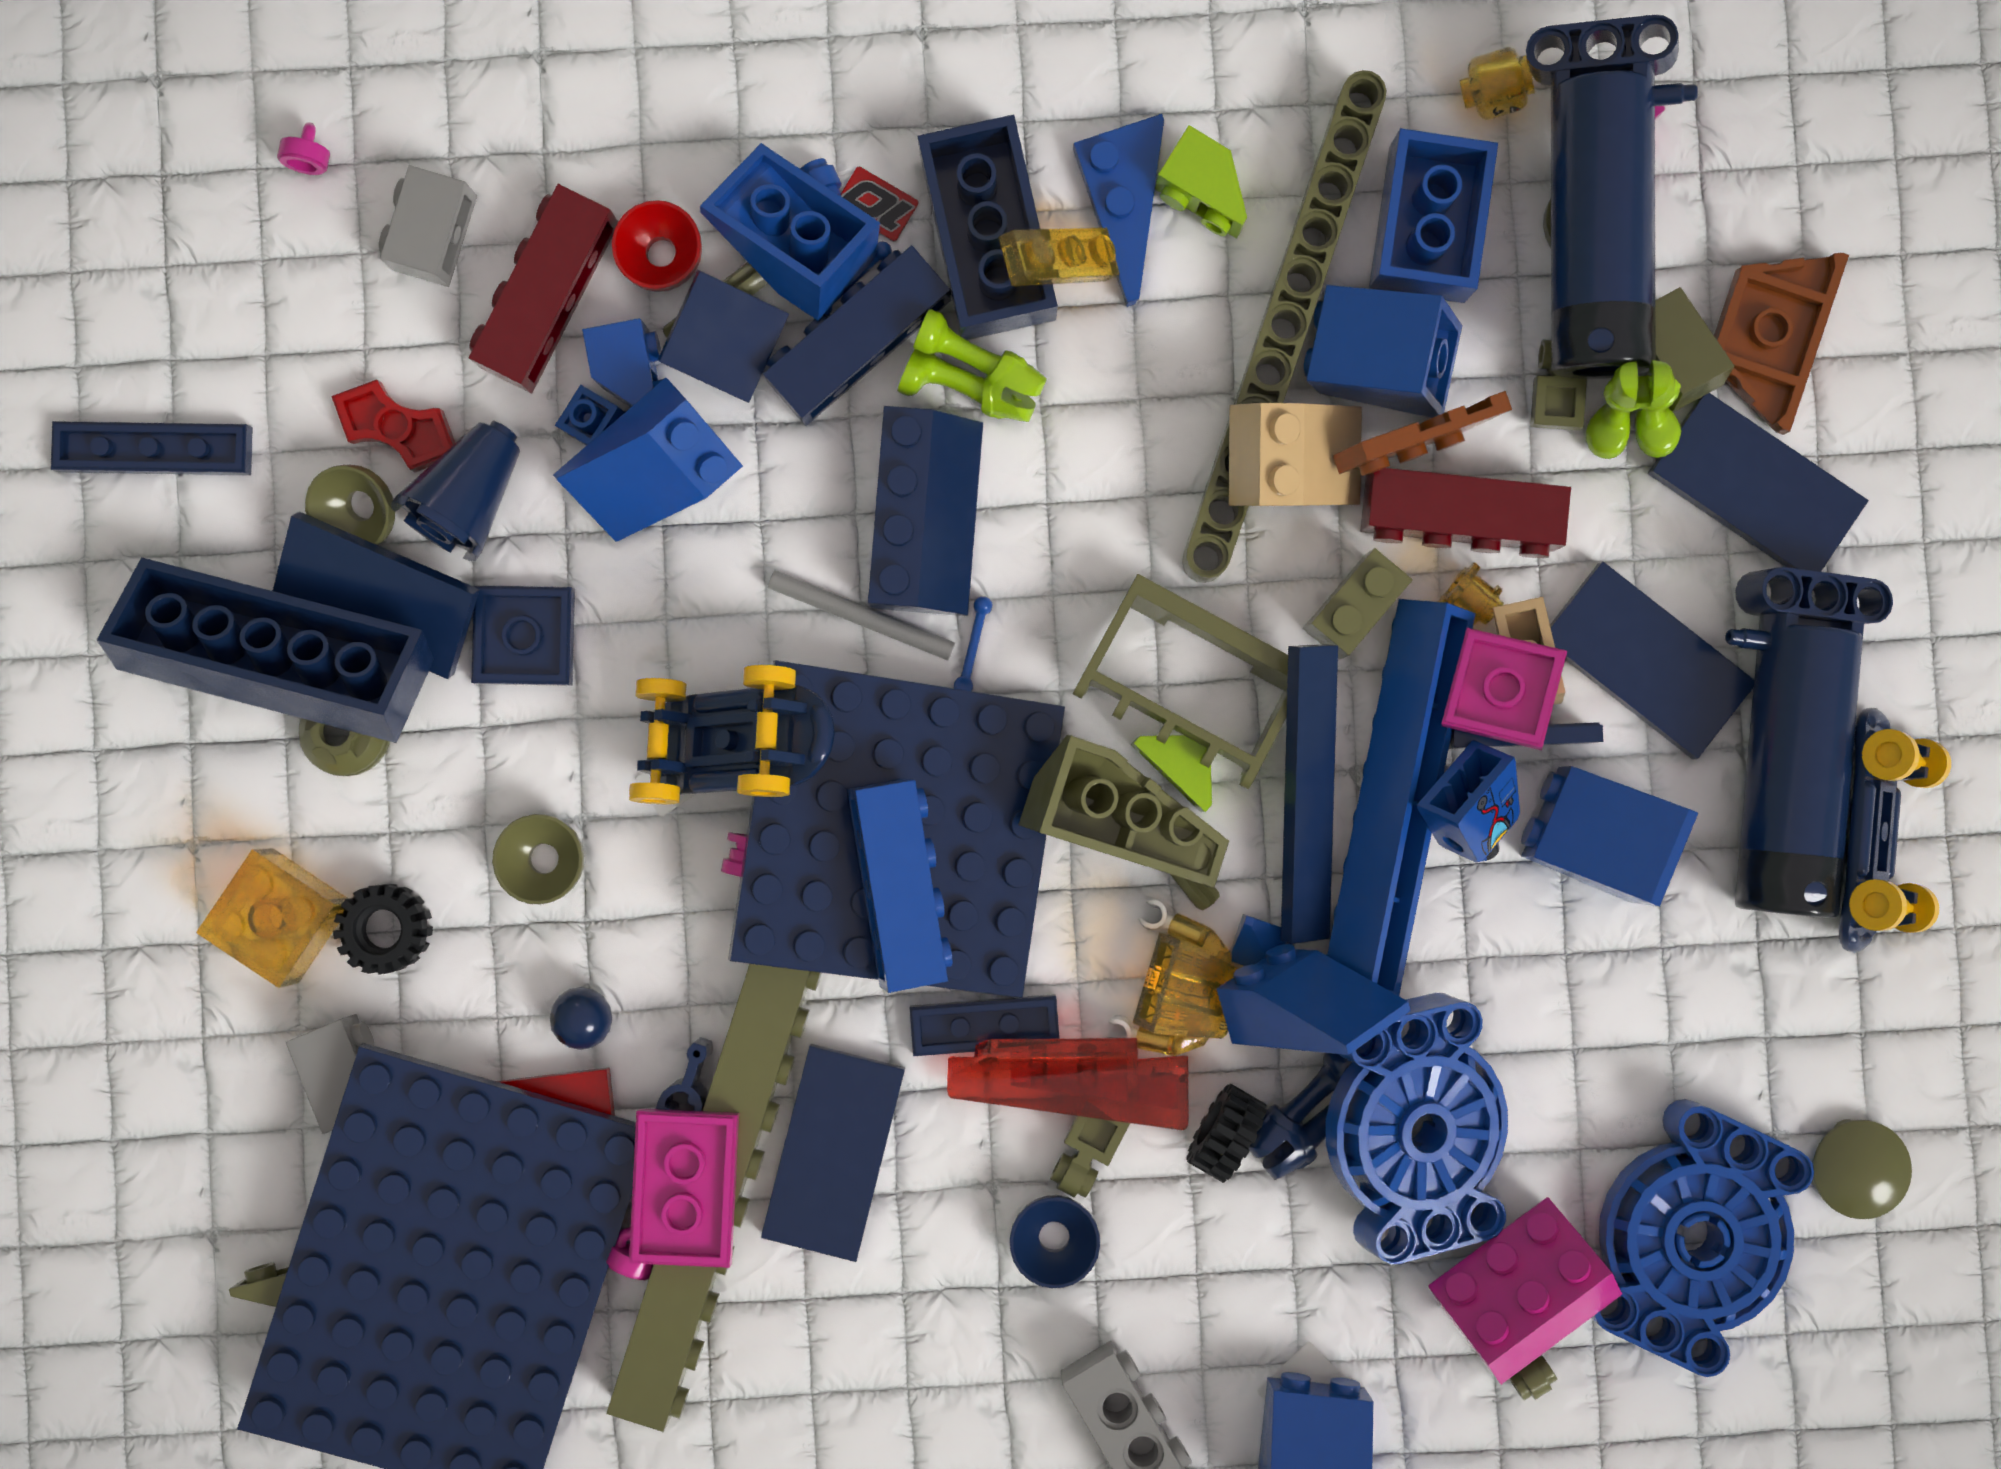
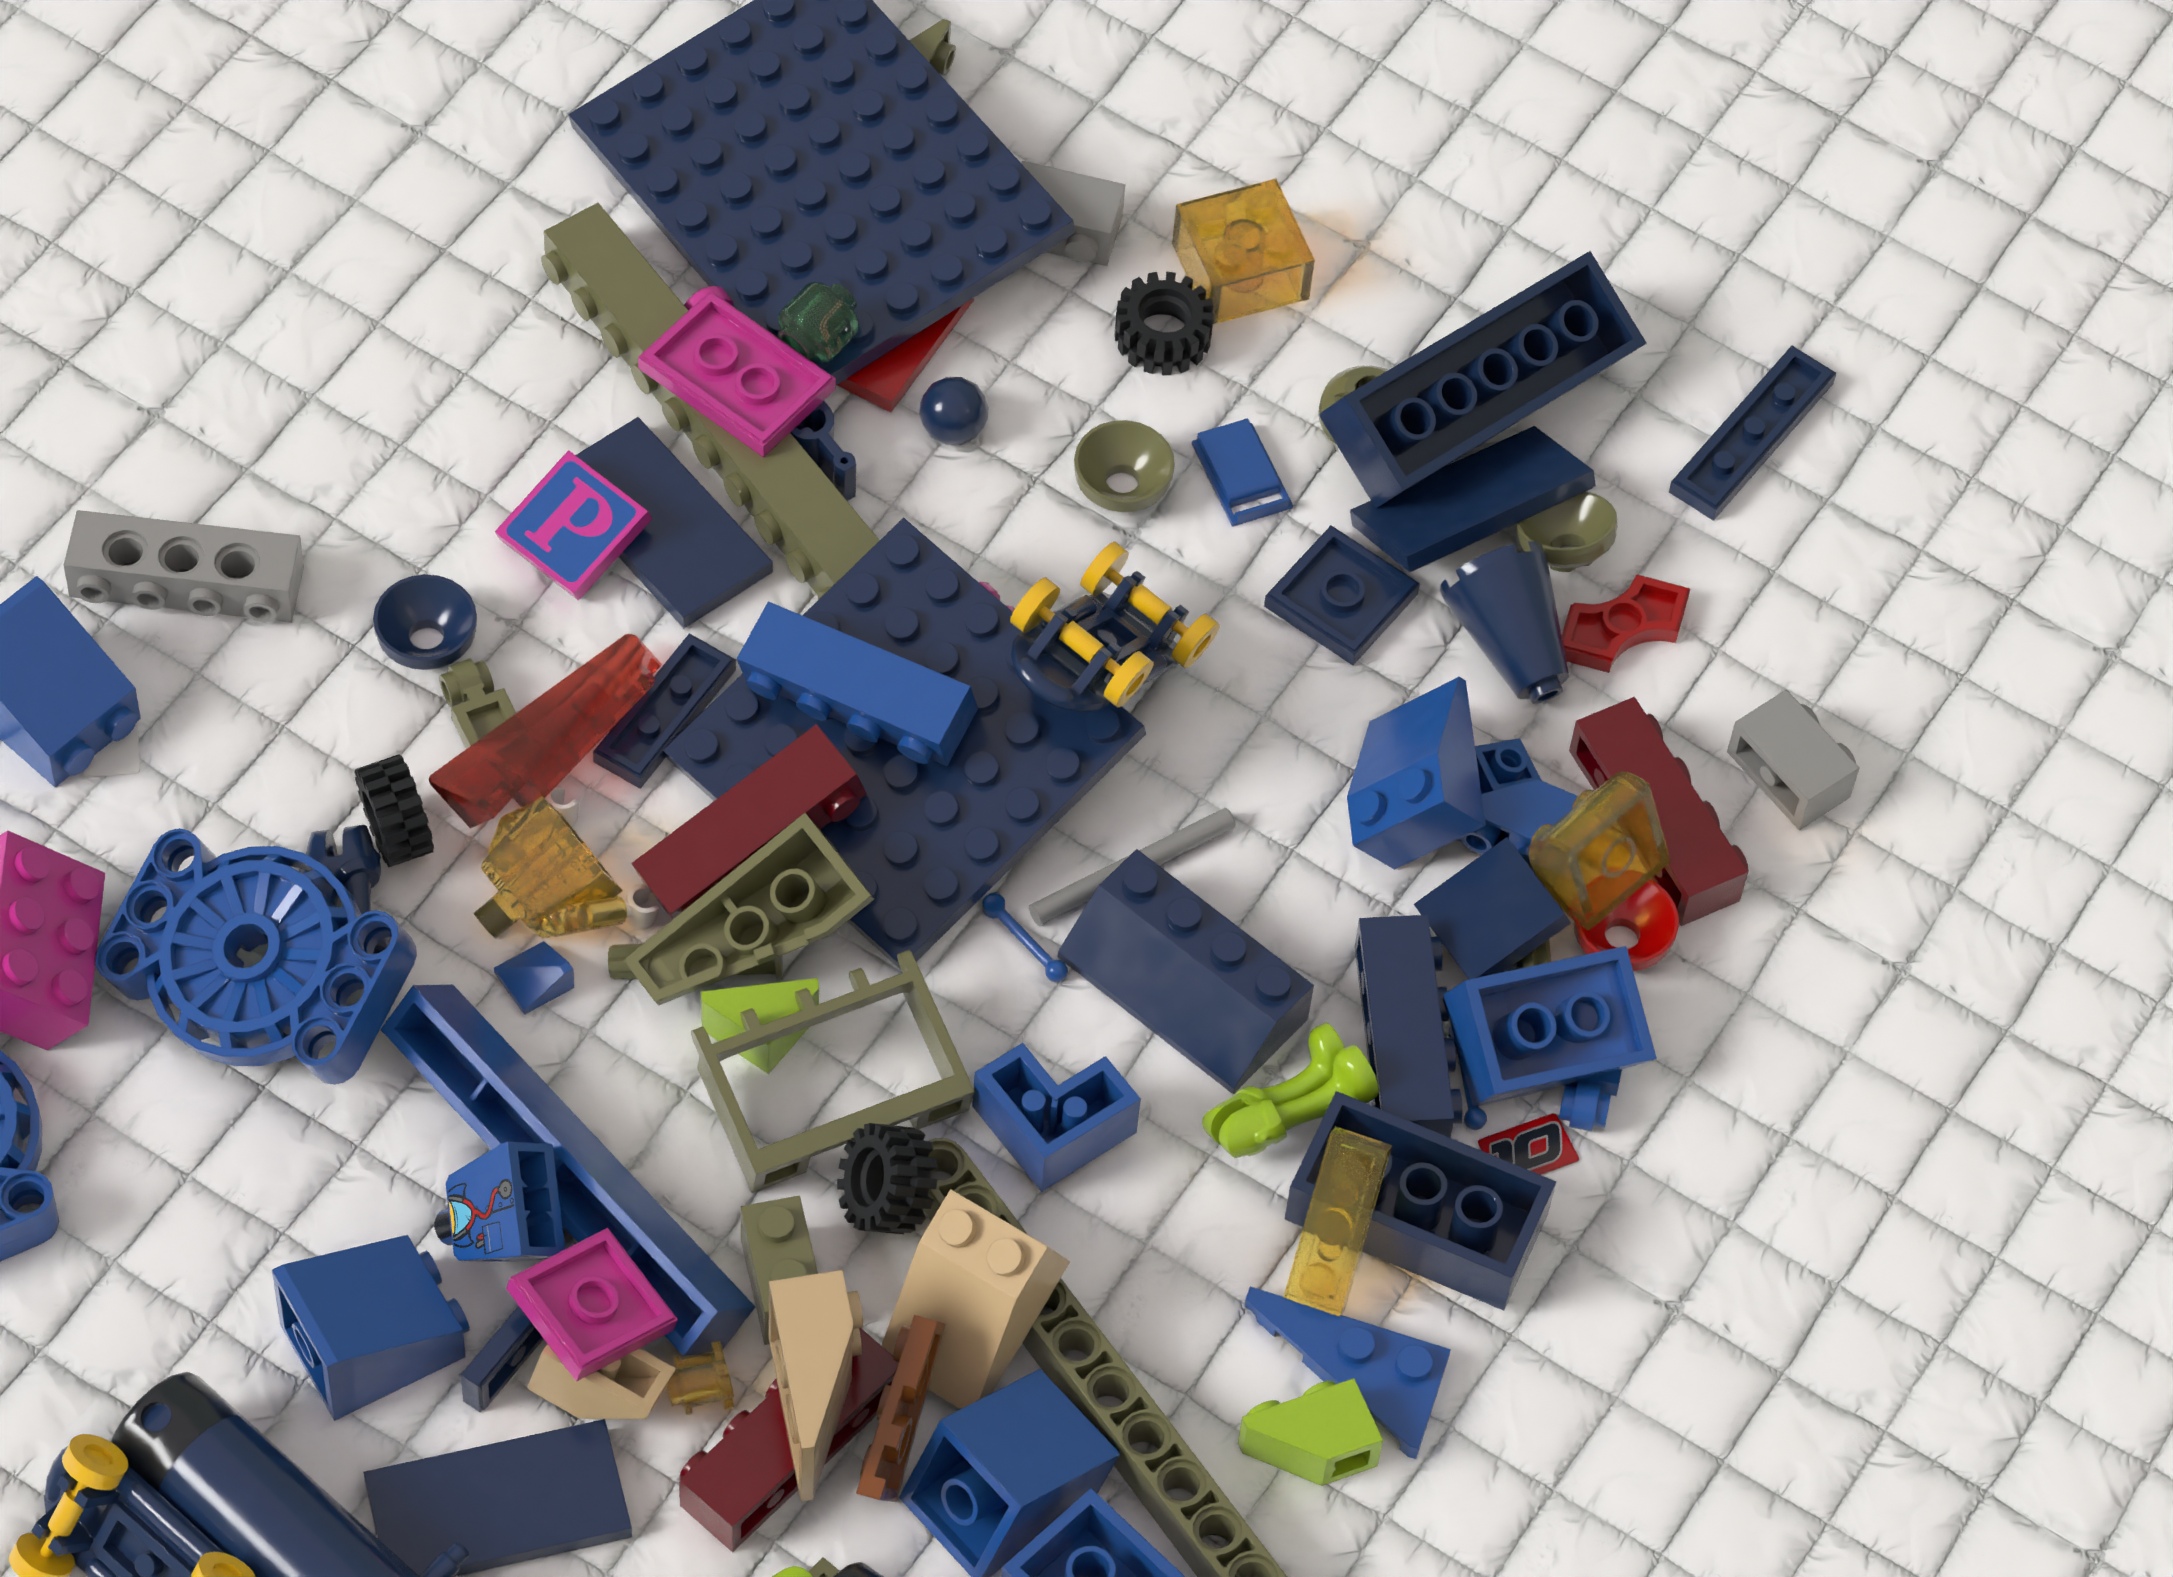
camera: 120 degrees right, 30 degrees down
(303, 153) = (1942, 709): dark pink tile -> none
(467, 785) = (1240, 470): none -> blue piece
(598, 1160) = (819, 321): none -> clear green head
(626, 284) = (1601, 849): none -> clear yellow brick
(890, 1206) = (573, 525): none -> tile
(1054, 878) = (798, 780): none -> dark red brick
(1118, 502) = (1052, 1125): none -> blue brick
(1247, 580) = (887, 1178): none -> black tyre
(1306, 1003) = (455, 928): blue slope -> none
(1309, 792) = (642, 1094): dark blue tile -> none
(1439, 511) = (812, 1350): none -> tan slope

